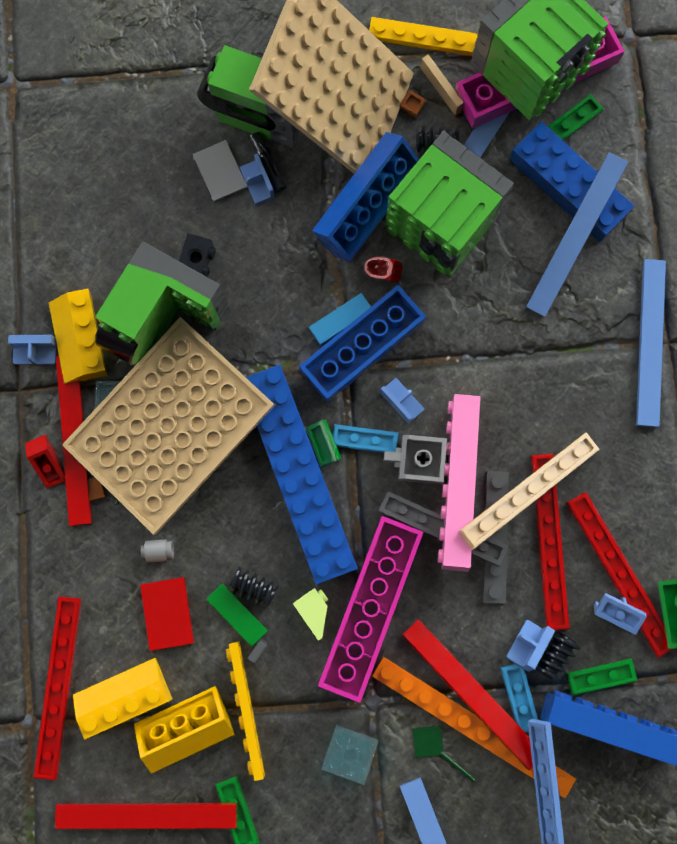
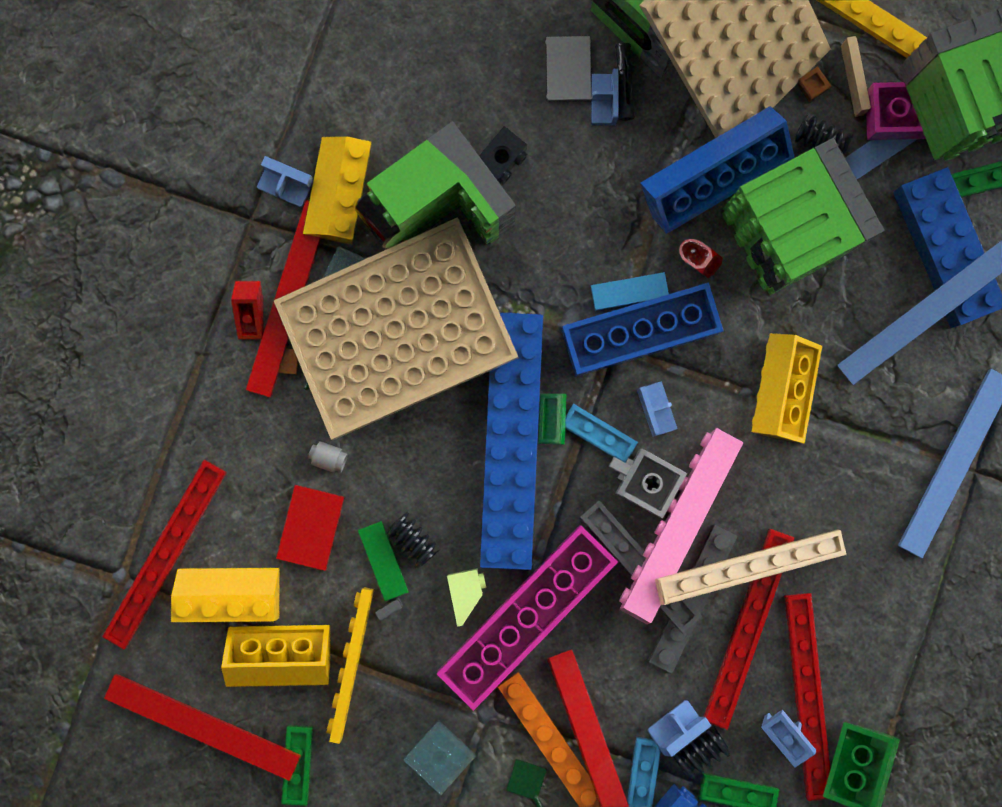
camera: 20 degrees right, 5 degrees up
(495, 340) = (786, 387): none -> yellow slope

